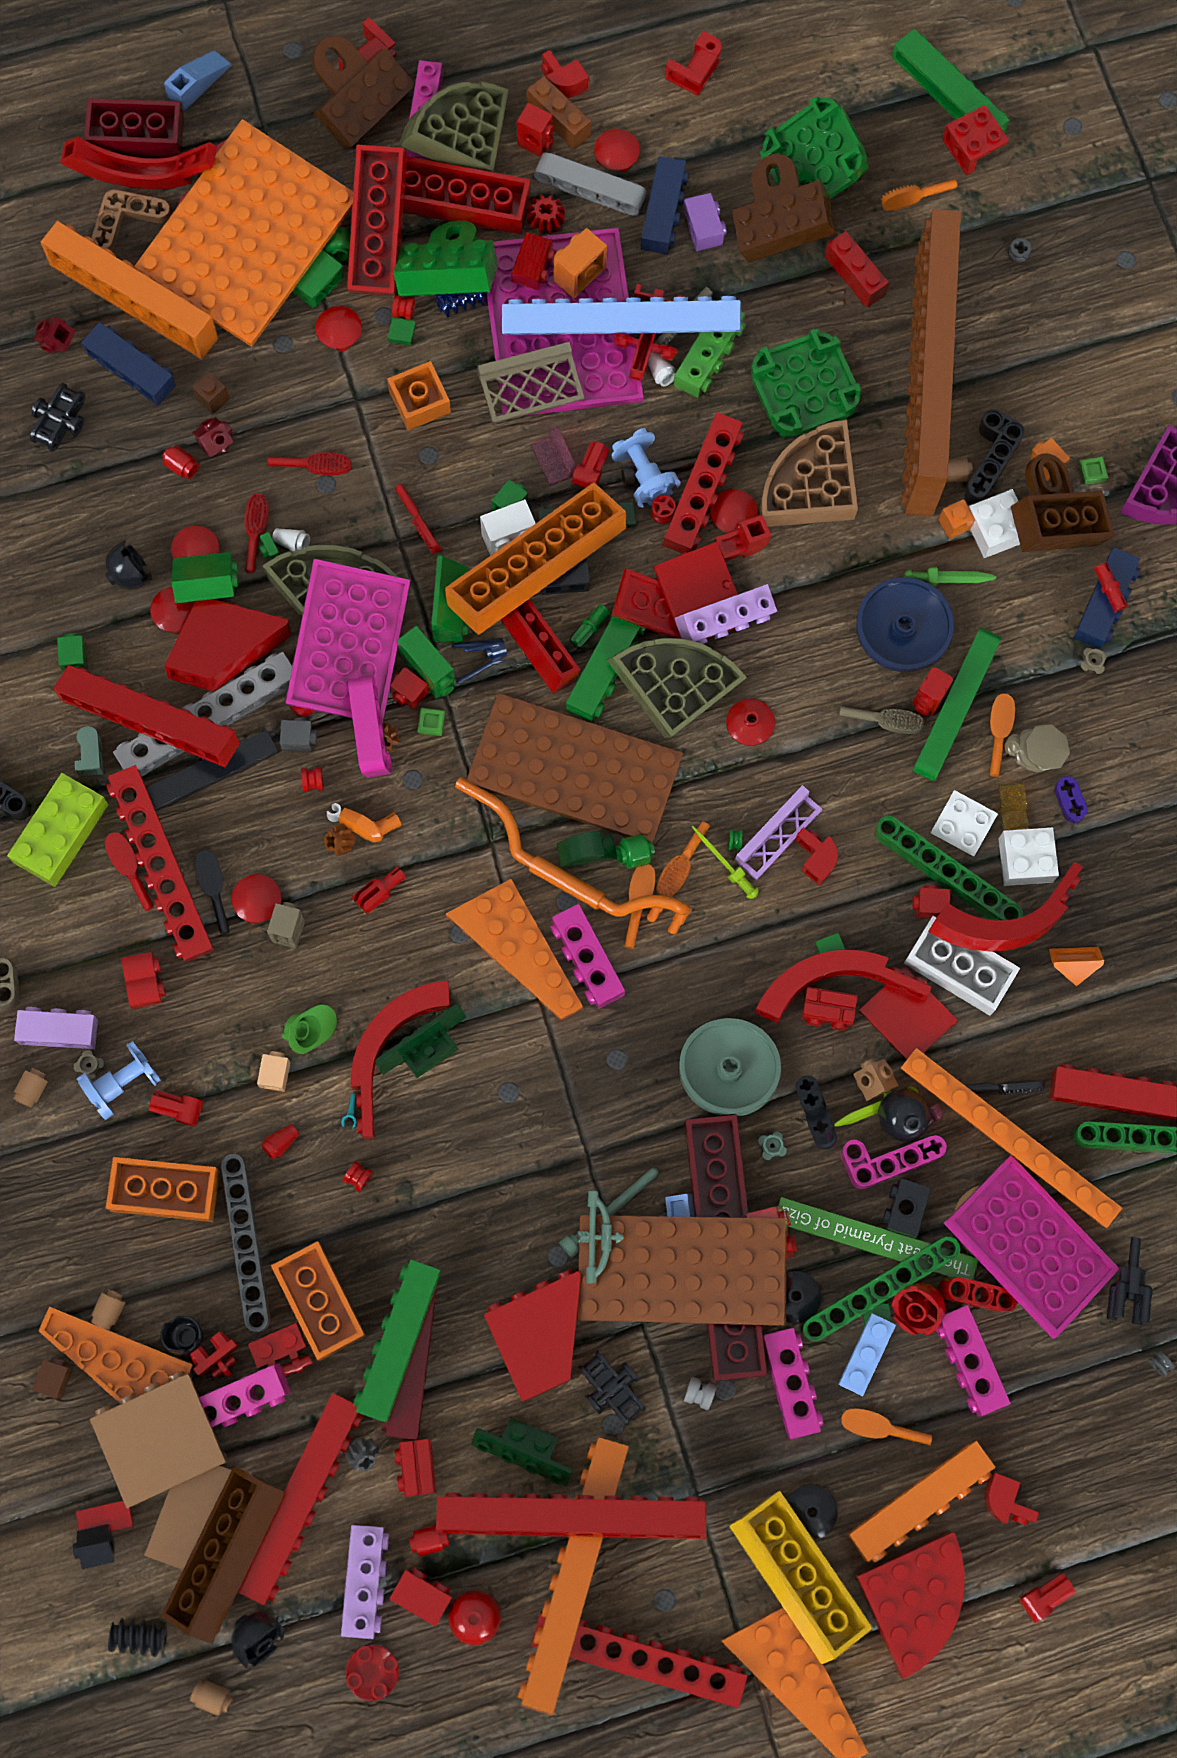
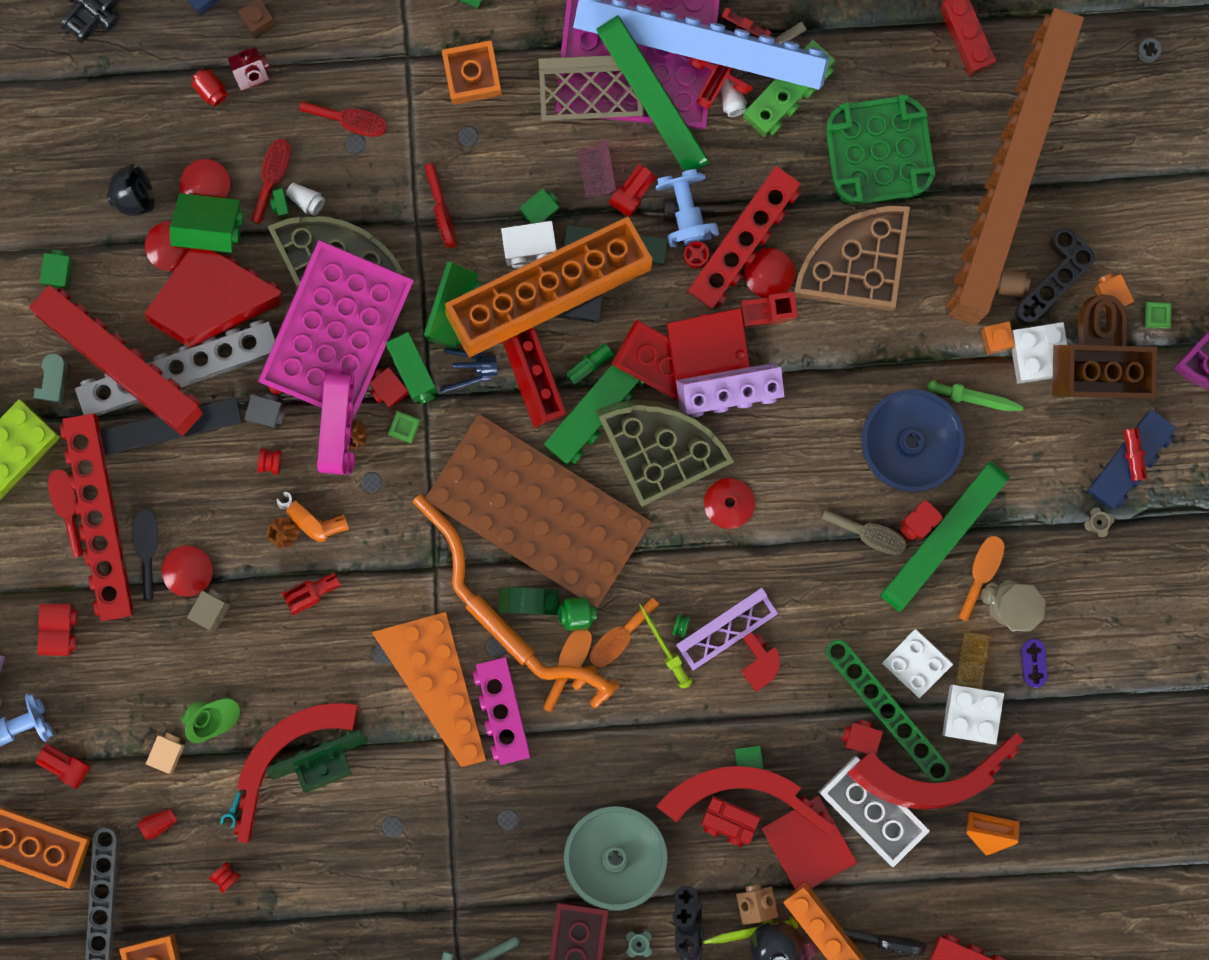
camera: 20 degrees right, 10 degrees up
(587, 372) = (652, 94): none -> green beam

